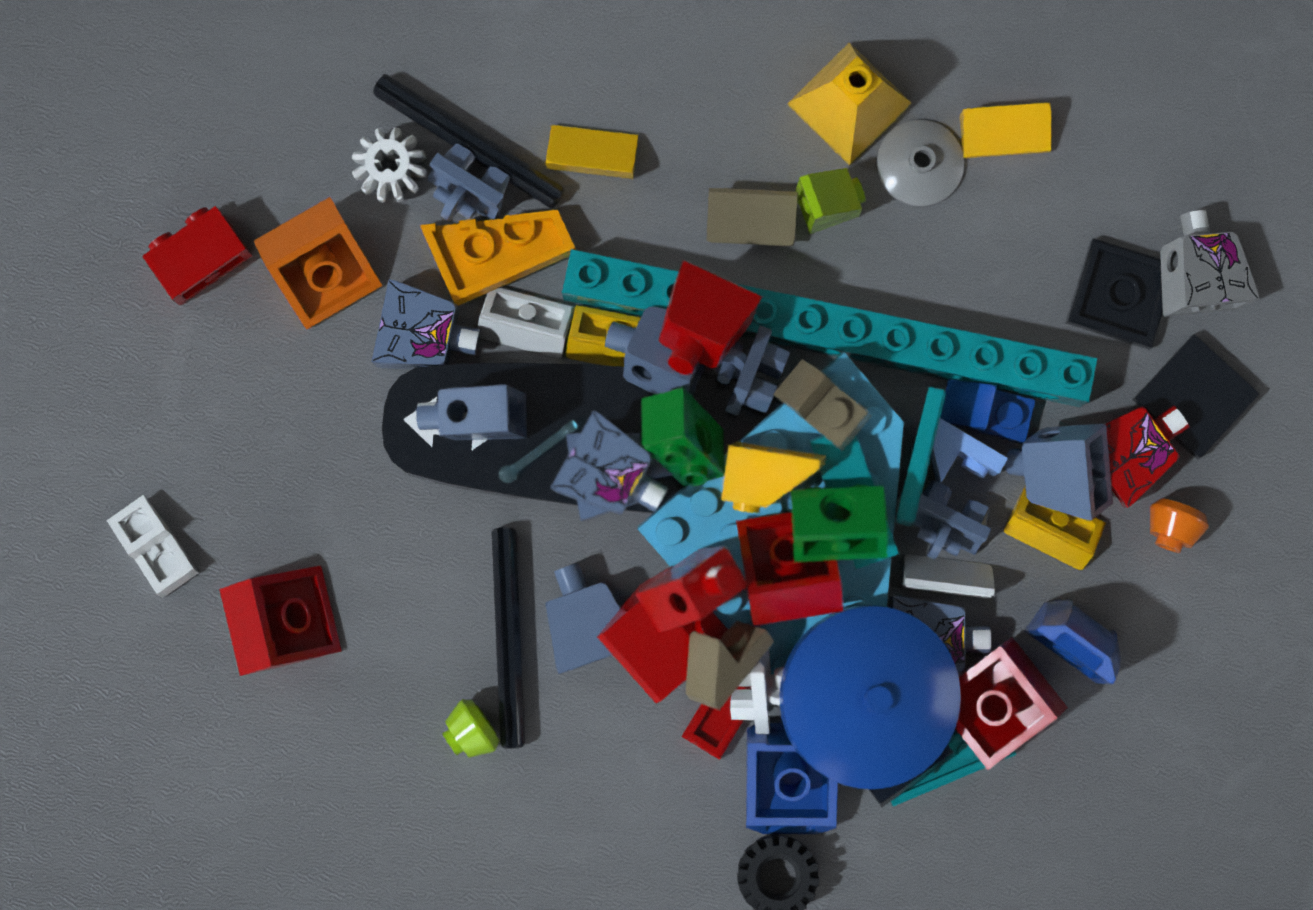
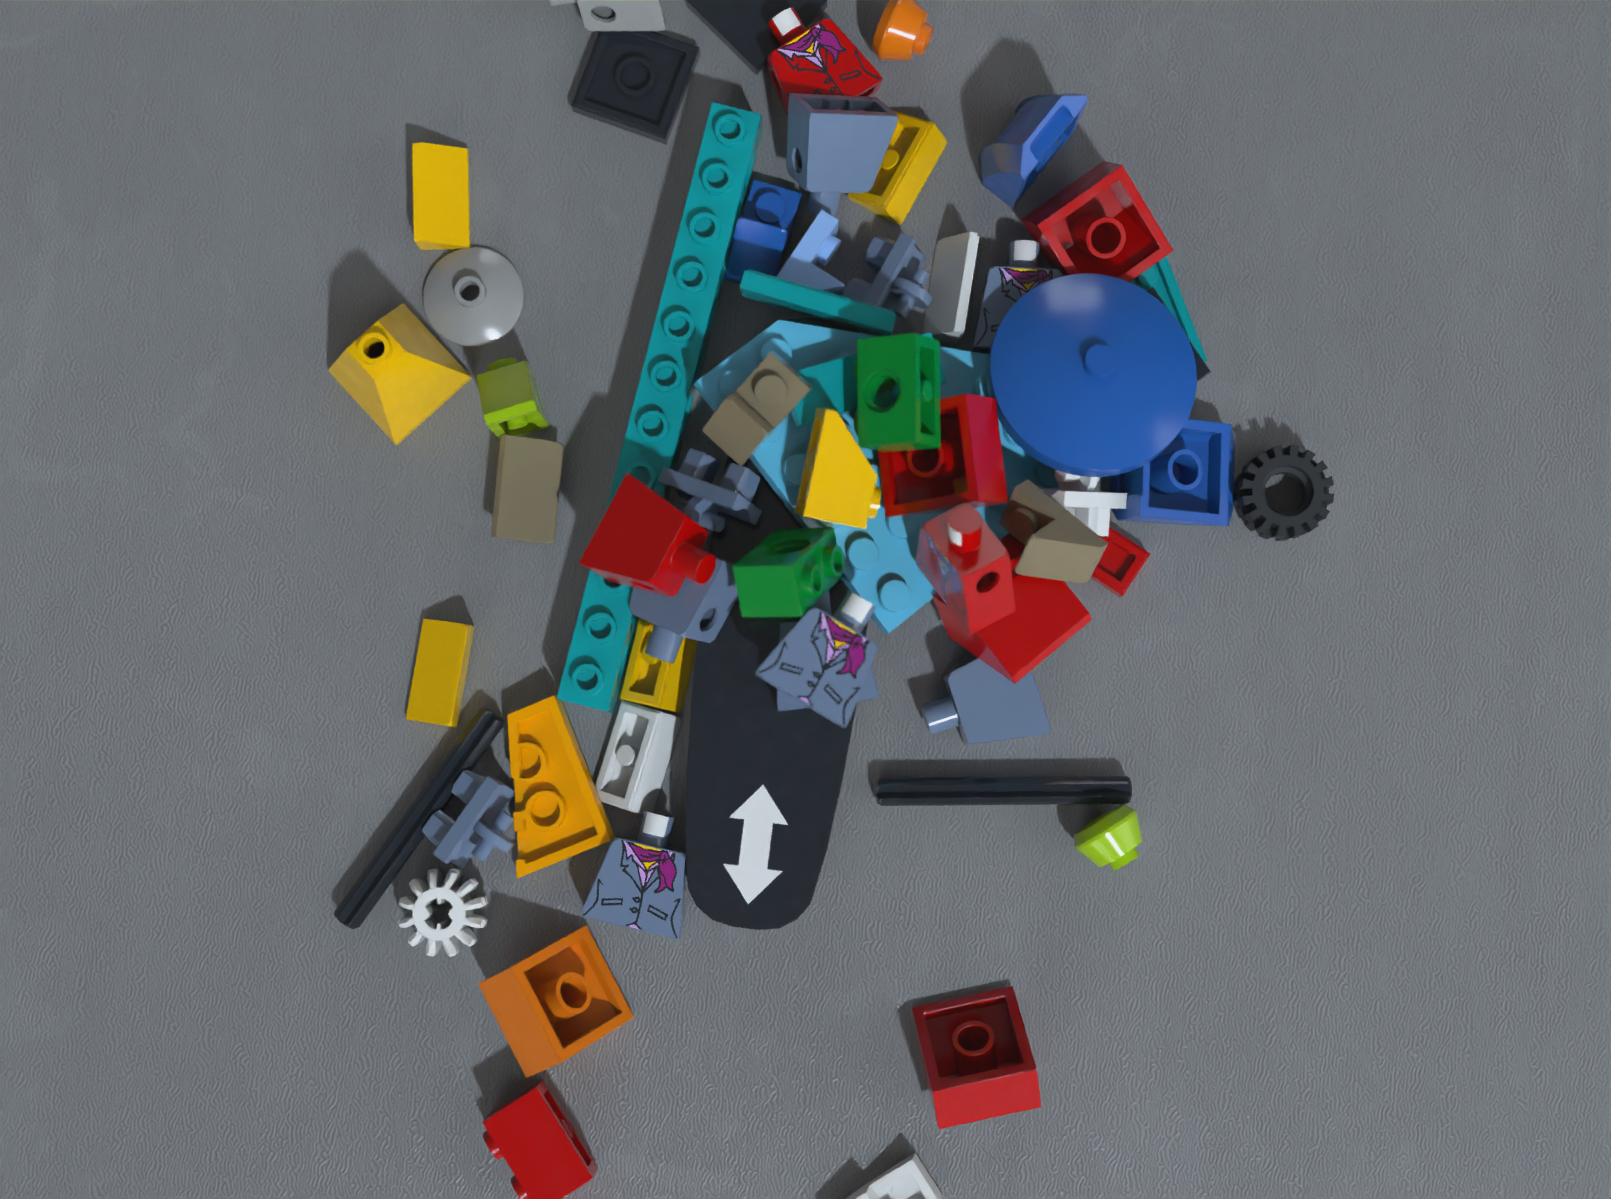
camera: 90 degrees left, 0 degrees up
(491, 414) = (750, 799): sand blue torso -> none
(508, 473) = (817, 781): clear light blue hinge -> none

